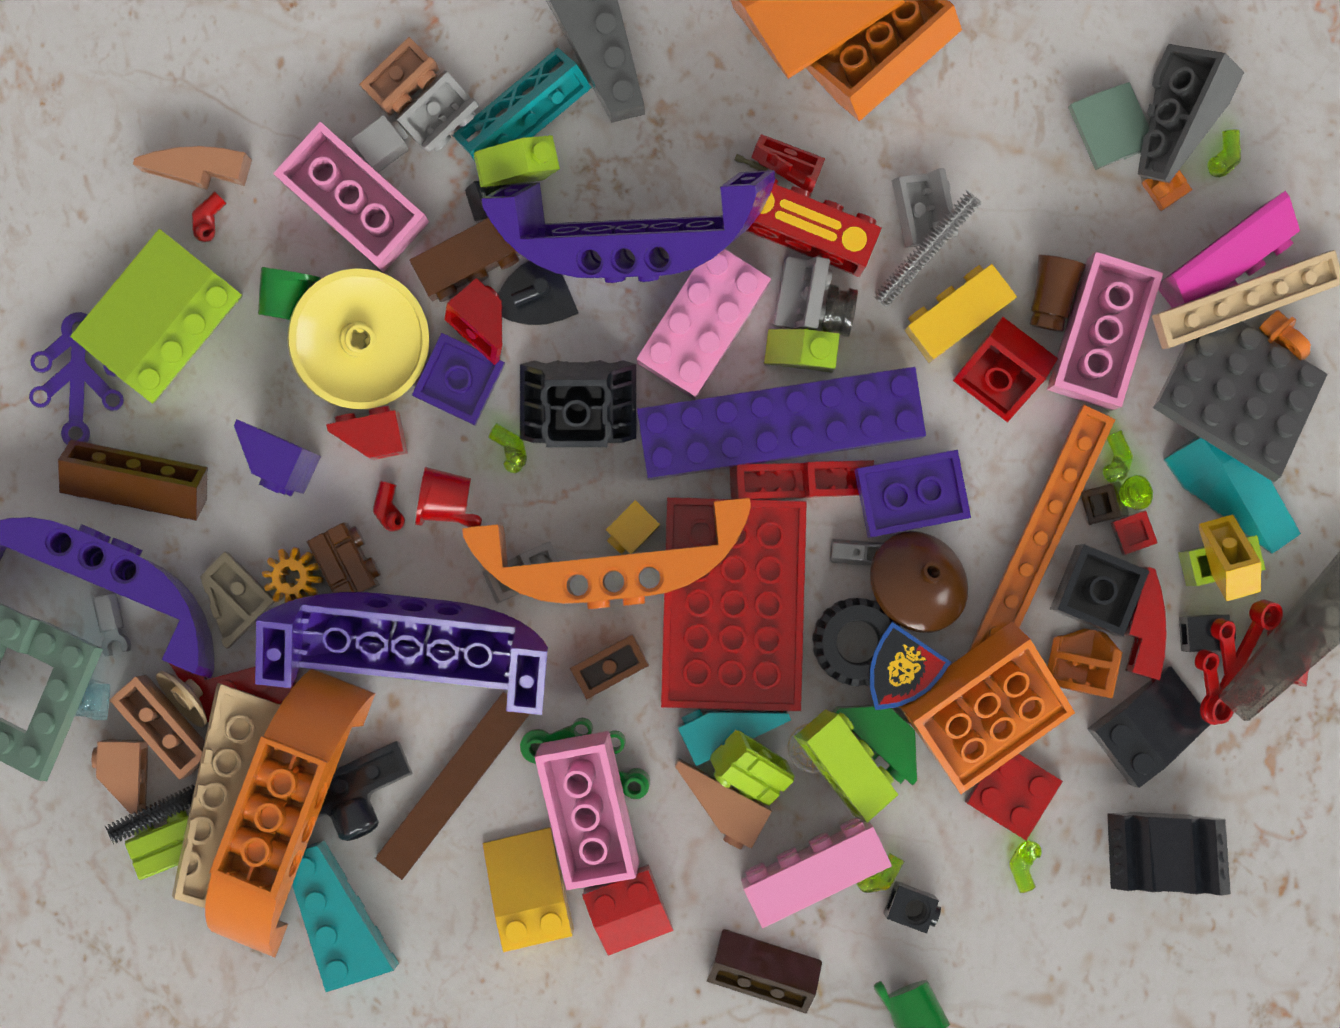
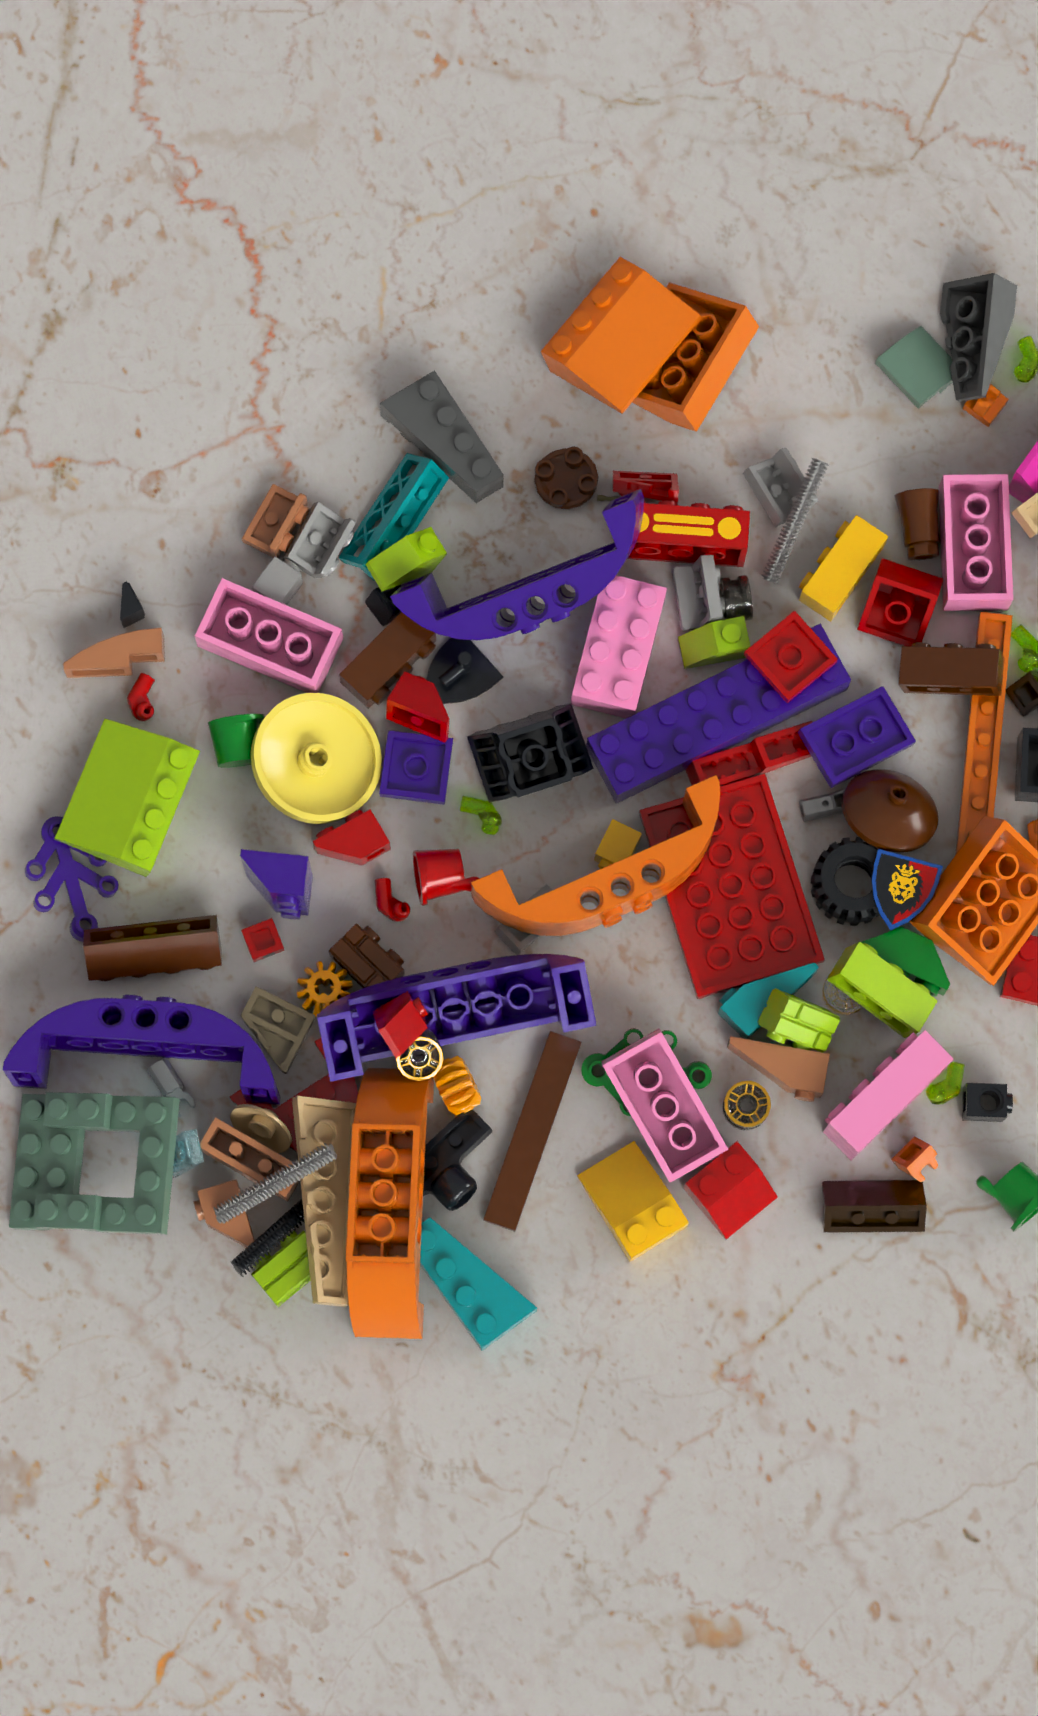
camera: 20 degrees left, 10 degrees down
(170, 765) = (274, 1184): none -> light grey axle
(224, 118) = (131, 607): none -> black slope
(247, 506) = (262, 940): none -> red plate
(342, 649) = (401, 1022): none -> red slope
(363, 690) = (423, 1065): none -> clear smoke wheel
(389, 719) = (457, 1086): none -> light orange gear
(609, 666) = (639, 973): reddish brown brick -> none
(678, 844) = (757, 1097): none -> wheel
(710, 127) = (566, 478): none -> reddish brown dish
(822, 939) = (915, 1157): none -> orange tile
(871, 394) = (790, 656): none -> red plate
(1033, 456) = (951, 669): none -> reddish brown brick

